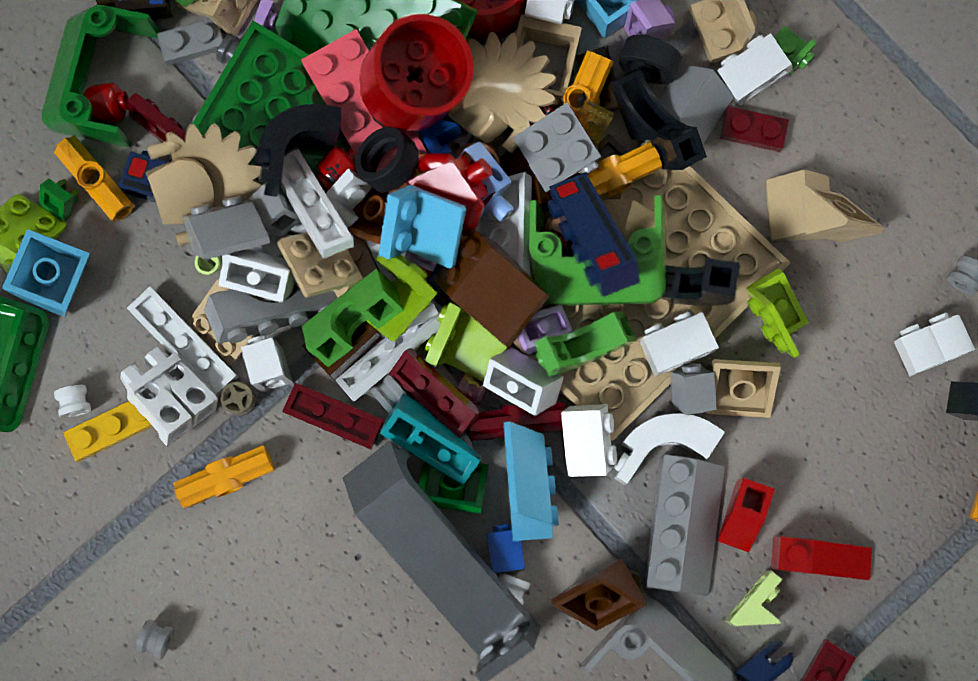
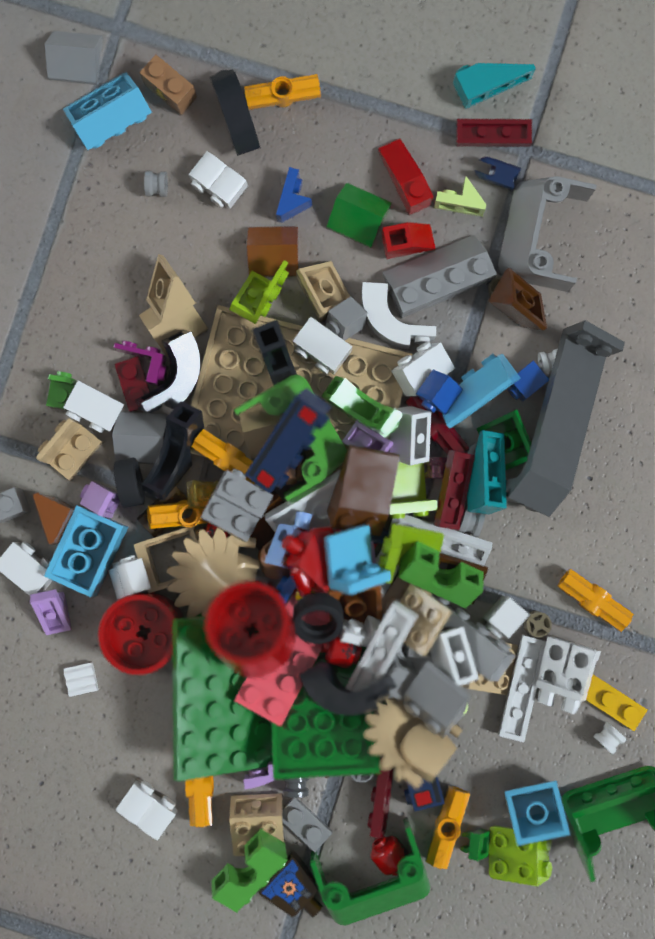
camera: 120 degrees left, 5 degrees up
(333, 416) = (509, 551): dark red plate -> none
(550, 436) = (438, 392): none -> blue brick
(732, 178) = (182, 375): none -> arch
(757, 160) = (157, 369): none -> magenta bracket
(807, 479) = (358, 214): none -> green slope
(823, 360) = (270, 247): none -> dark orange slope
(863, 407) = (291, 203): none -> blue slope

